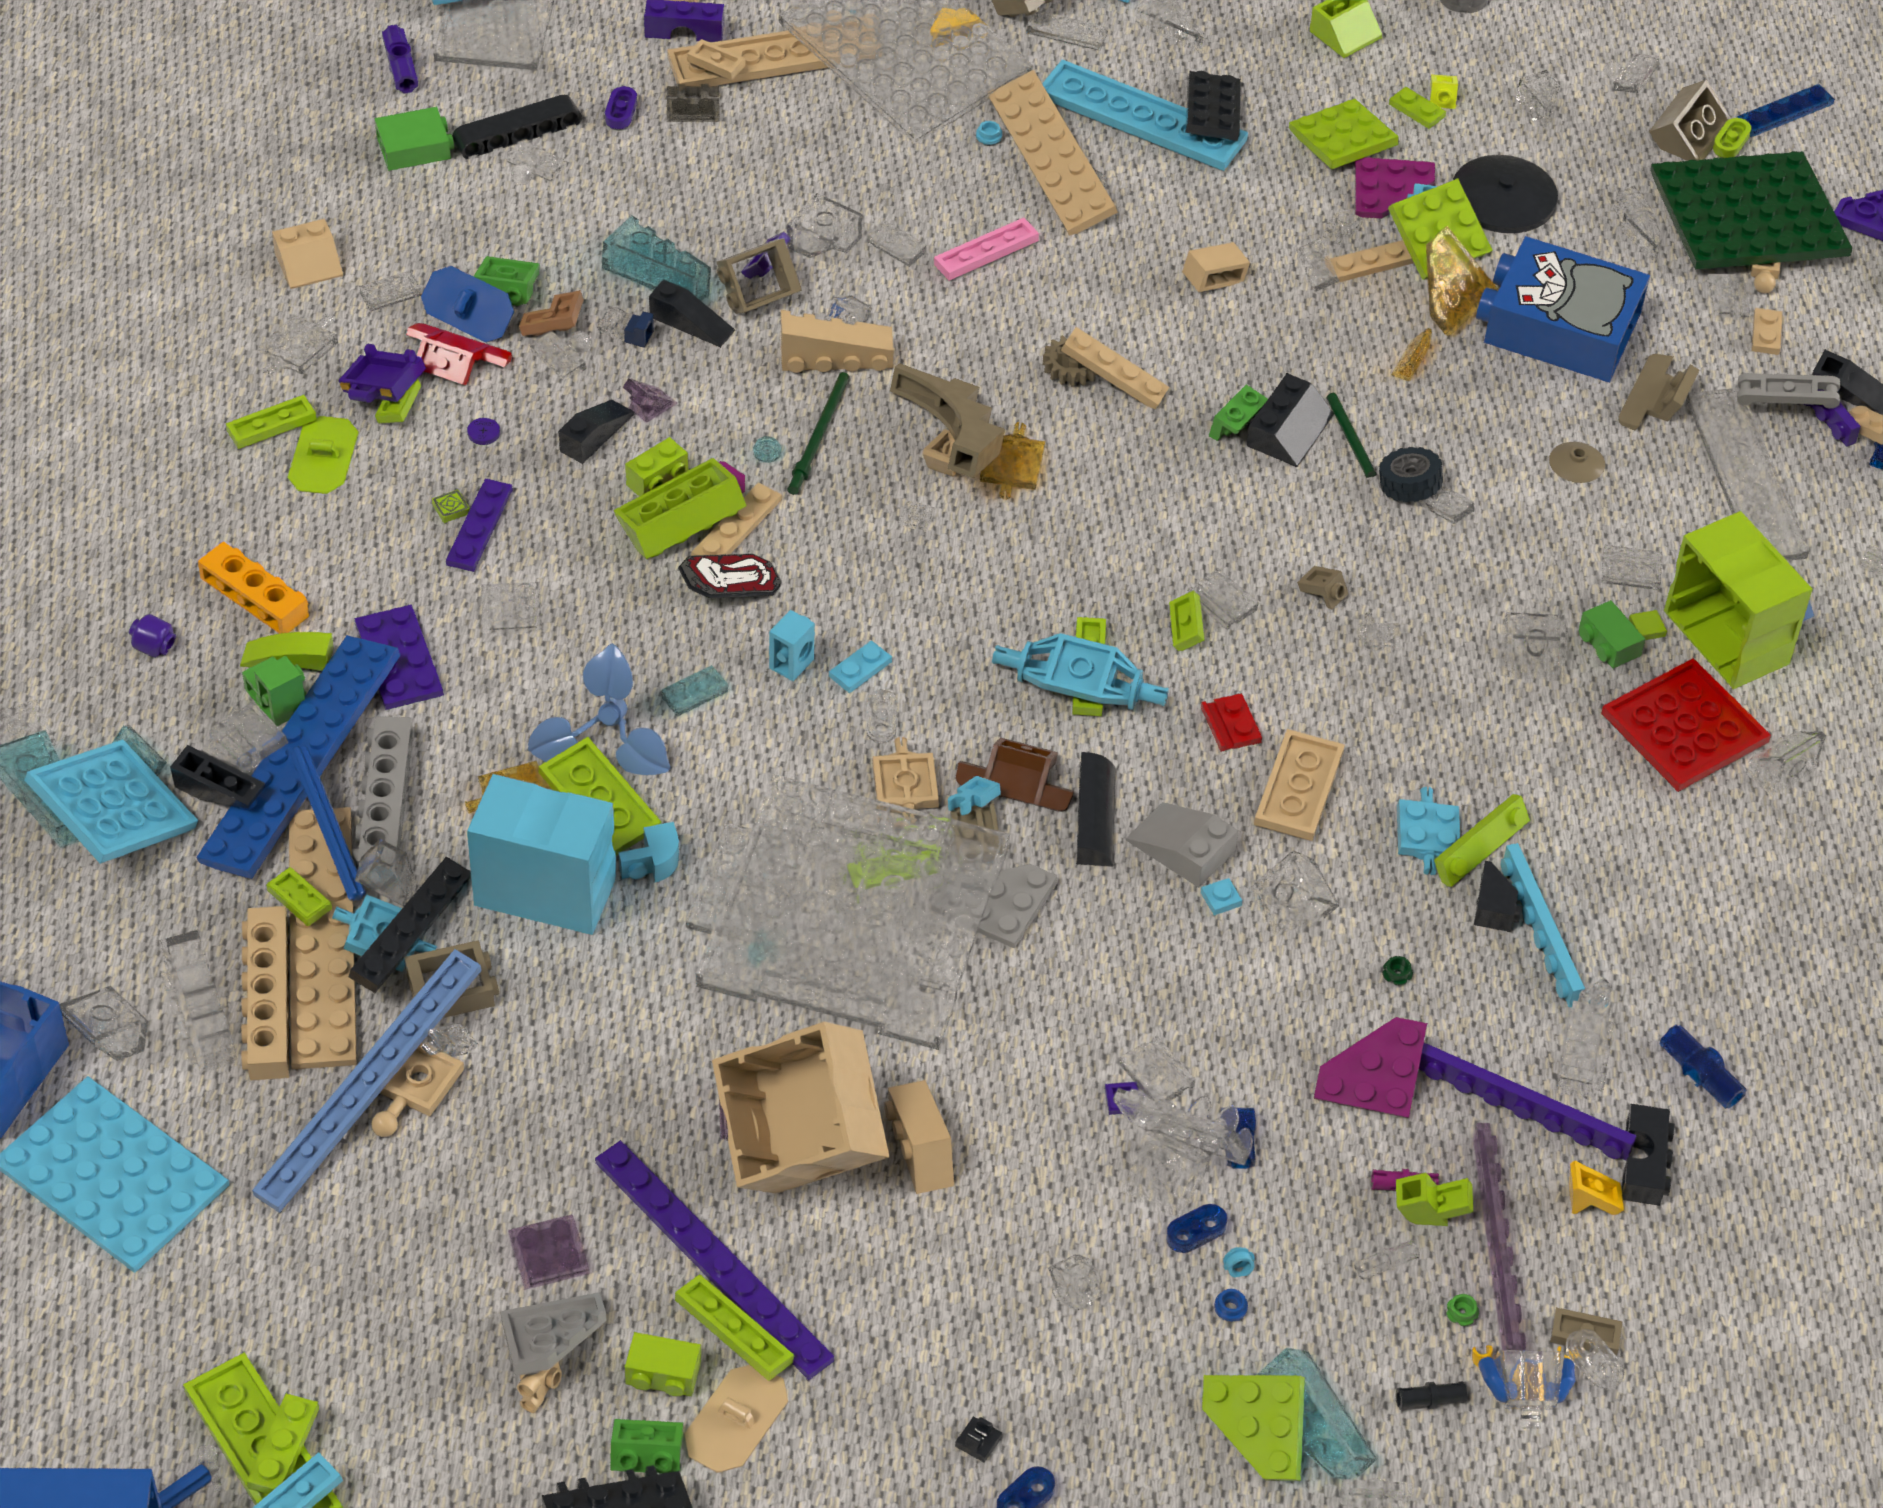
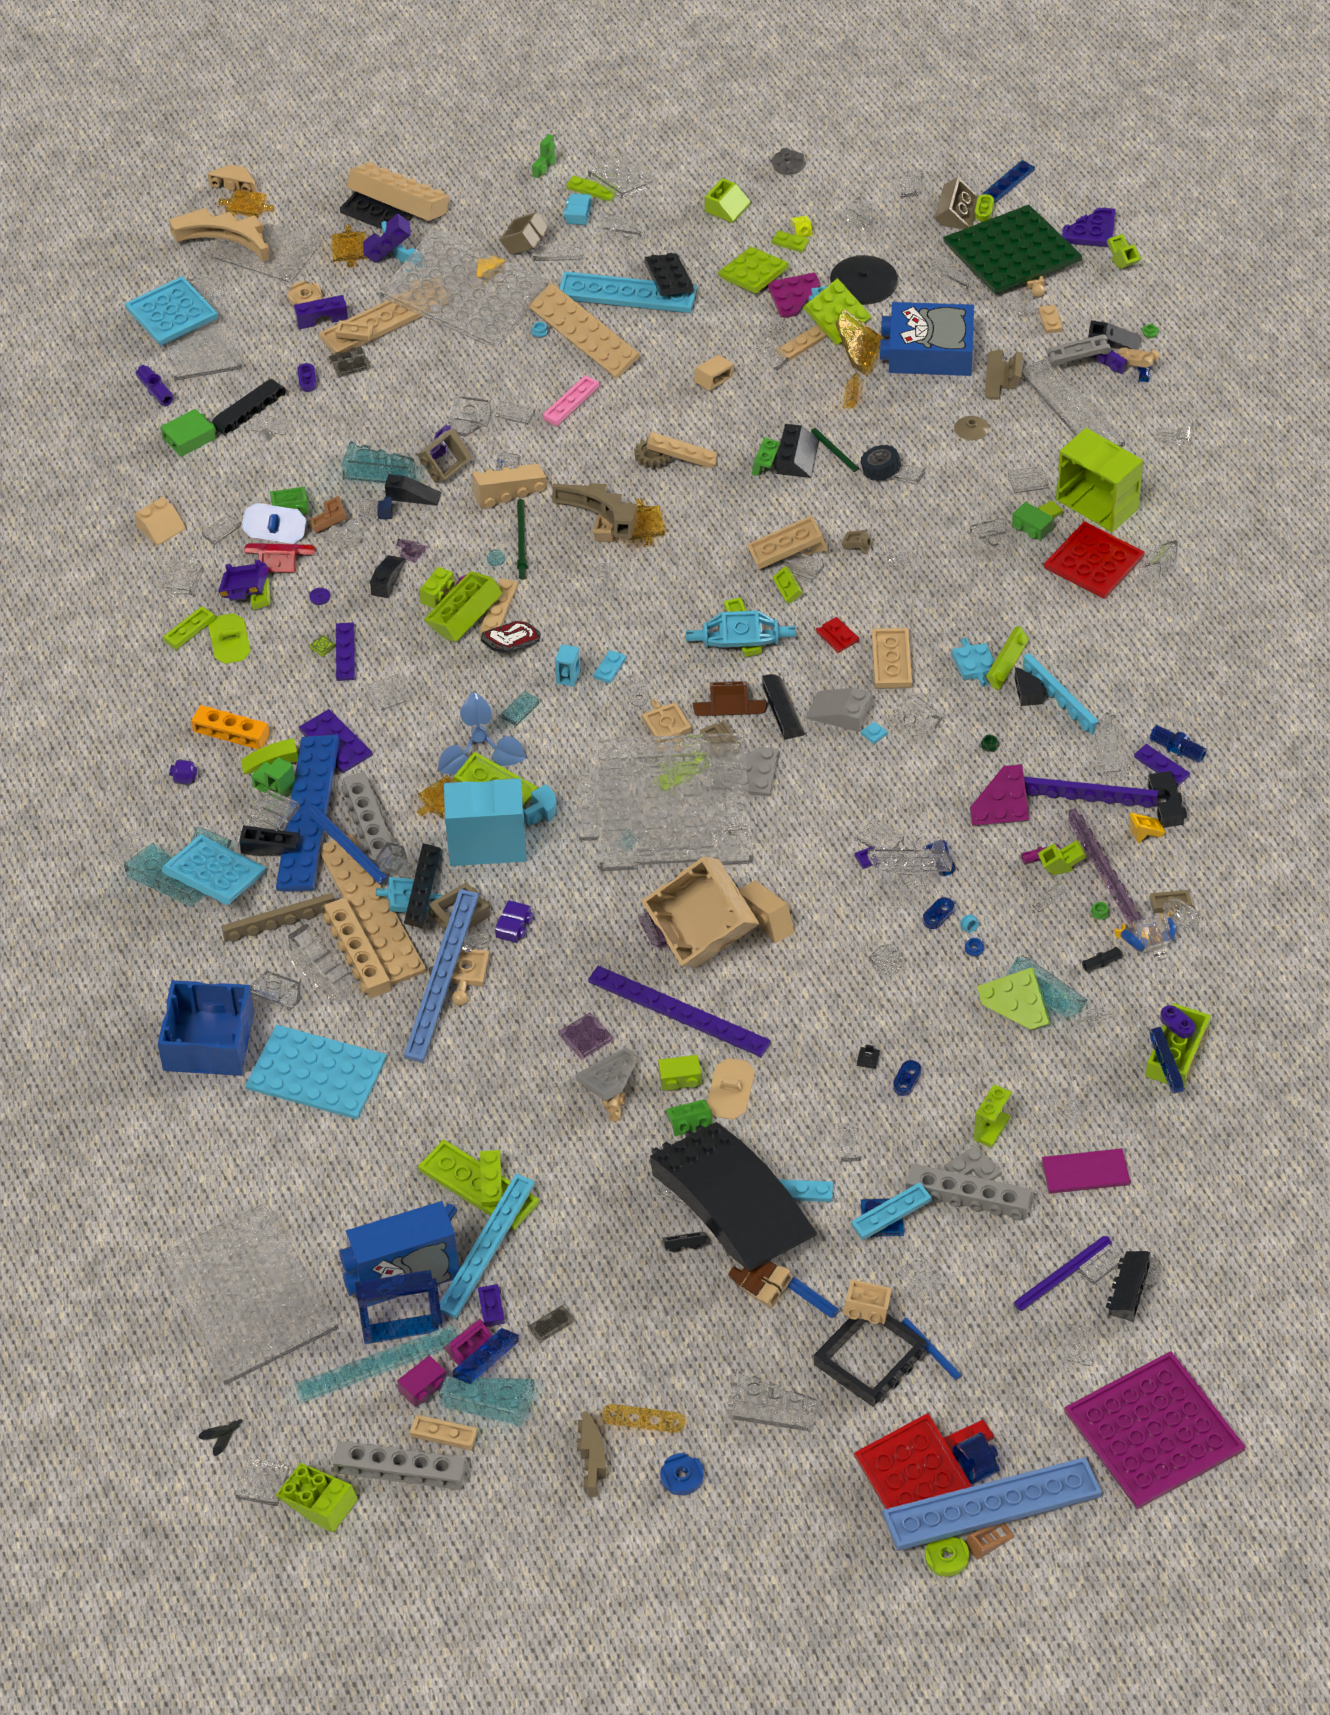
camera: 15 degrees left, 0 degrees up
(170, 905) = (277, 917): none -> dark tan plate
(299, 896) = (350, 889): lime plate -> none
(523, 1026) = (513, 921): none -> dark purple brick
(734, 1327) = (708, 1042): lime plate -> none
(974, 793) = (711, 716): medium azure plate -> none
(1213, 554) = (787, 542): none -> tan plate
(1663, 1092) = (1160, 763): none -> dark purple plate

